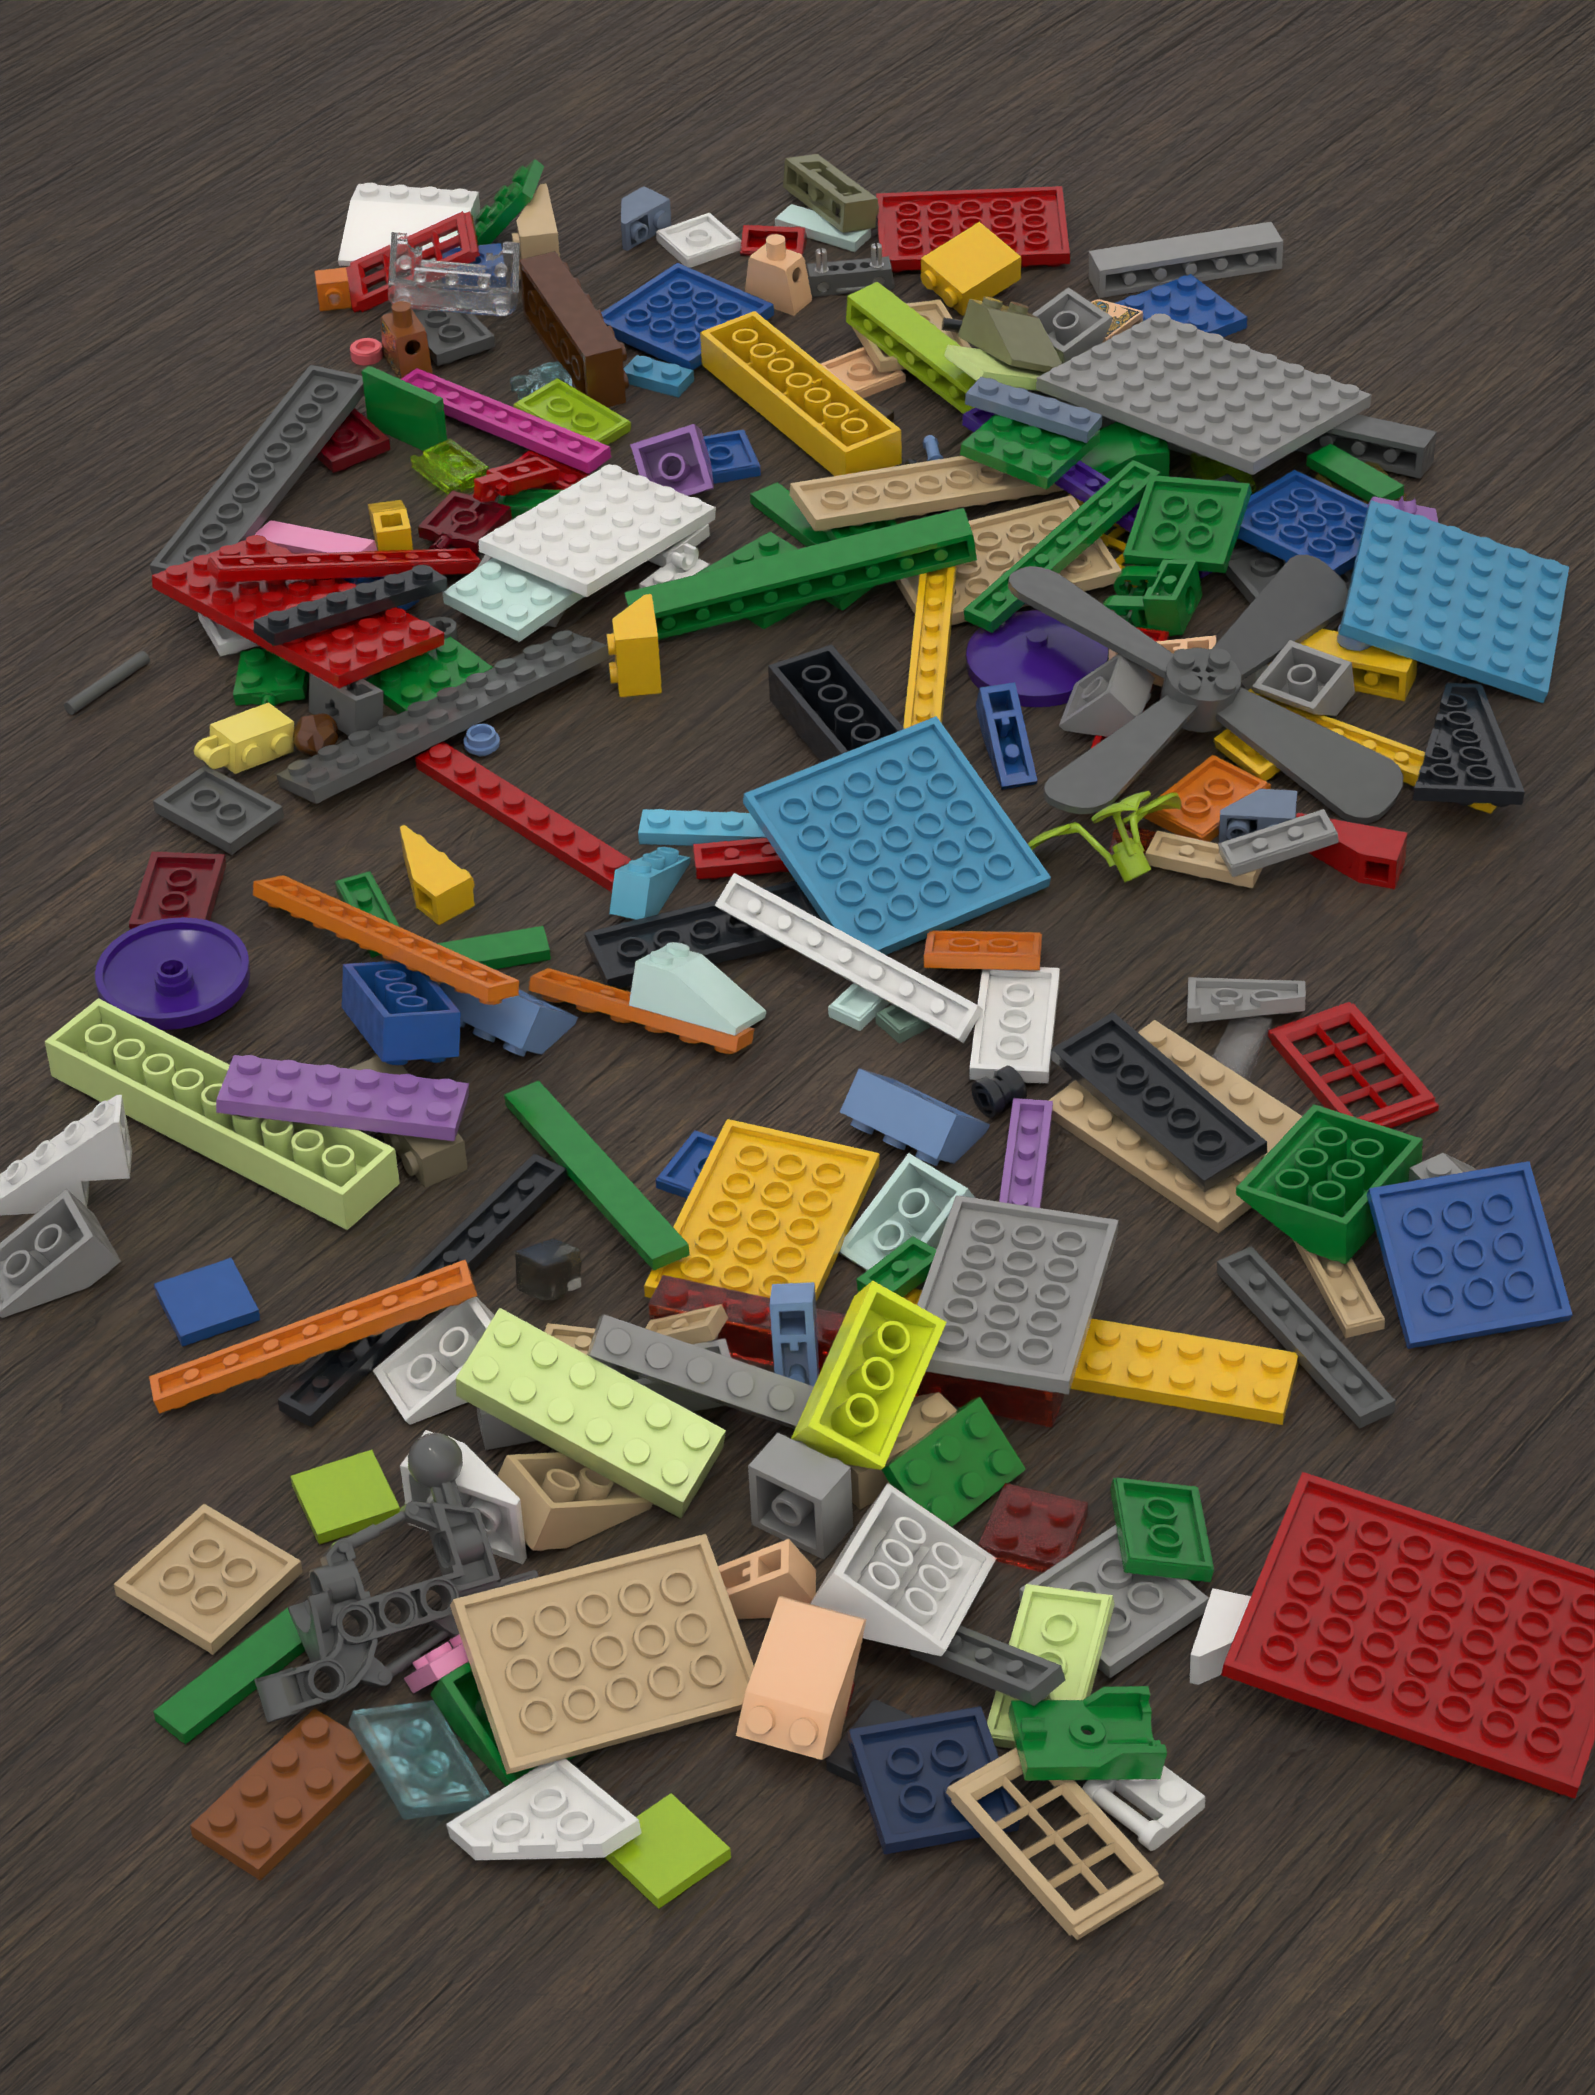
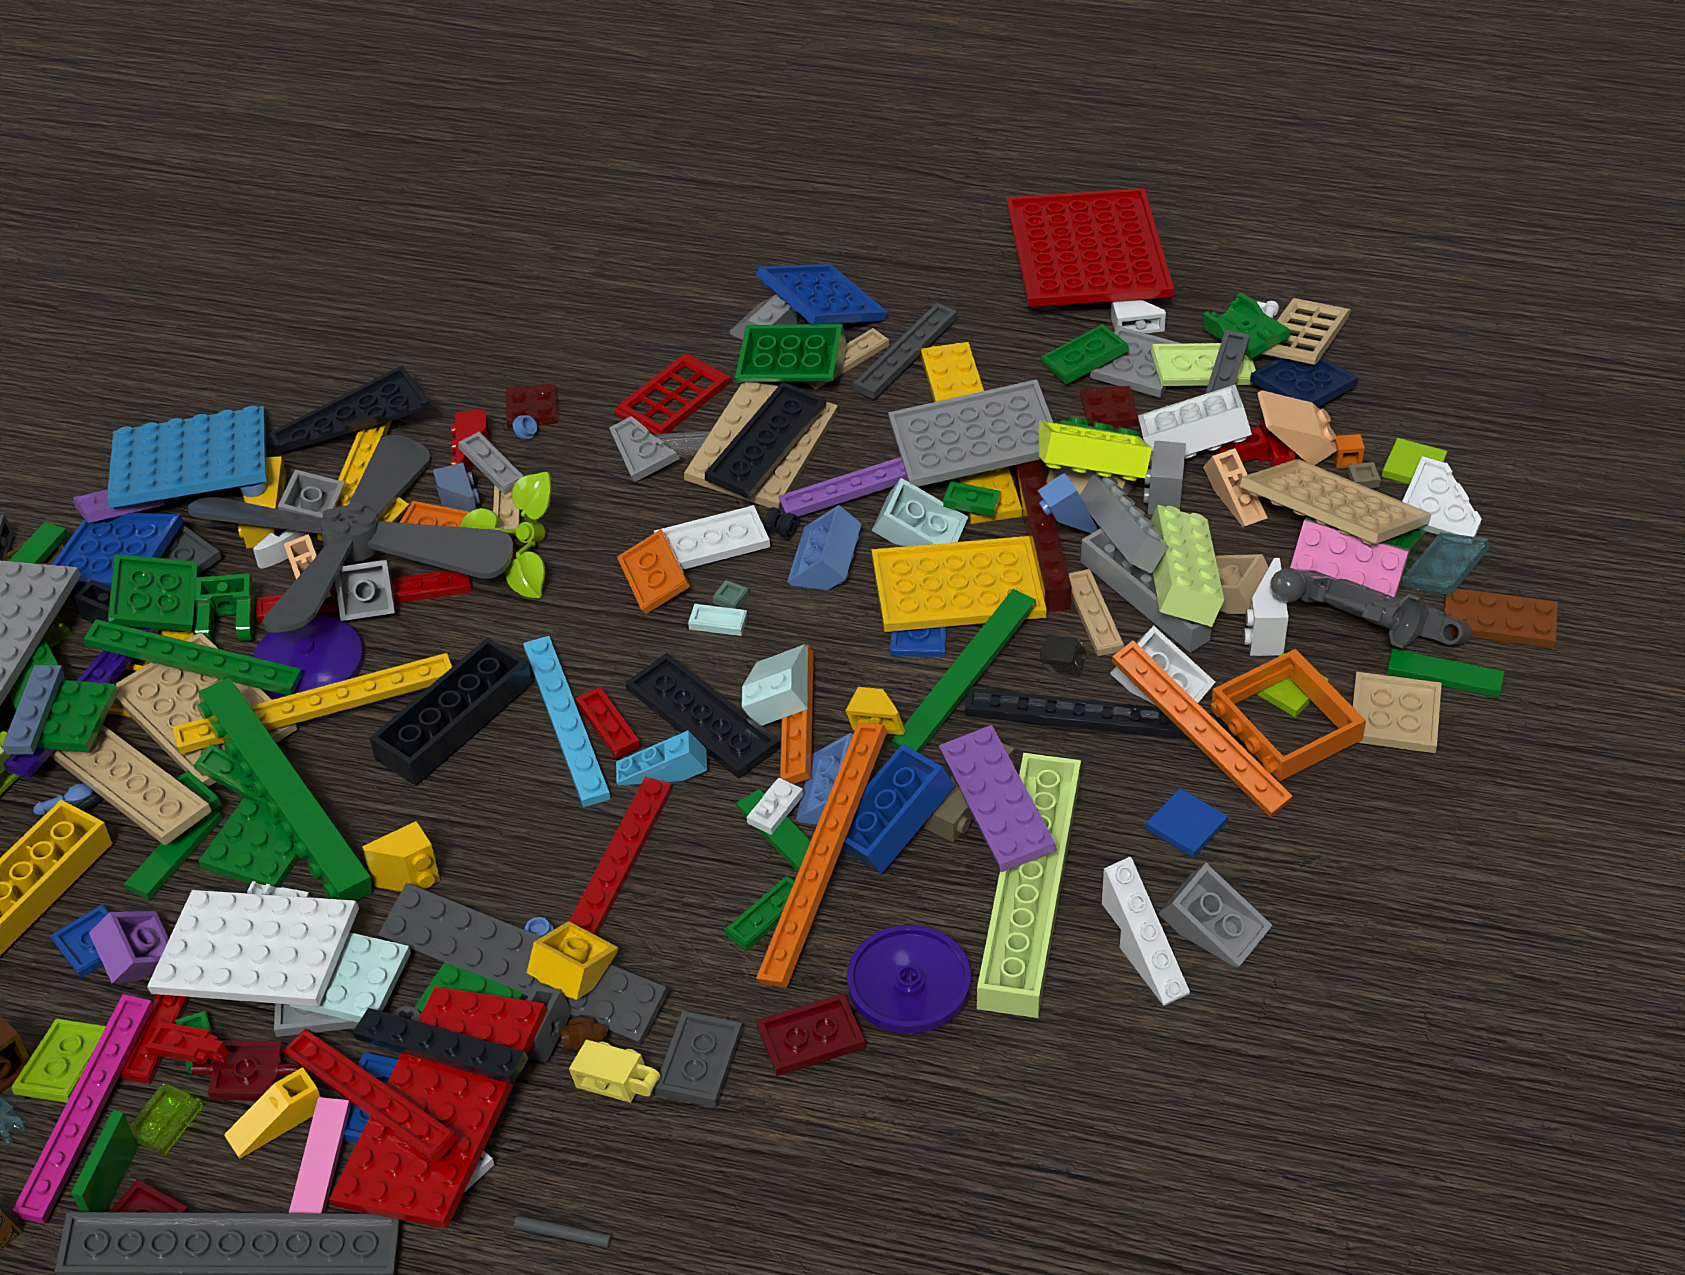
camera: 115 degrees left, 5 degrees up
(268, 678) = (522, 1112): green plate -> none
(274, 1480) = (1319, 691): none -> orange window
(388, 714) = (570, 959): none -> yellow slope
(437, 883) = (721, 883): yellow slope -> none
(506, 945) = (775, 806): none -> white plate
(584, 1069) = (874, 707): none -> yellow slope
(674, 1763) = (1364, 474): none -> dark tan plate
(692, 1326) = (1081, 567): tan plate -> none
(737, 1764) = (1349, 450): none -> orange plate
(849, 958) = (702, 622): white plate -> none
(897, 838) = (575, 633): dark azure plate -> none
(1005, 735) = (414, 636): blue slope -> none
(1359, 907) = (524, 427): none -> medium blue plate
(1411, 931) = (534, 401): none -> clear red plate

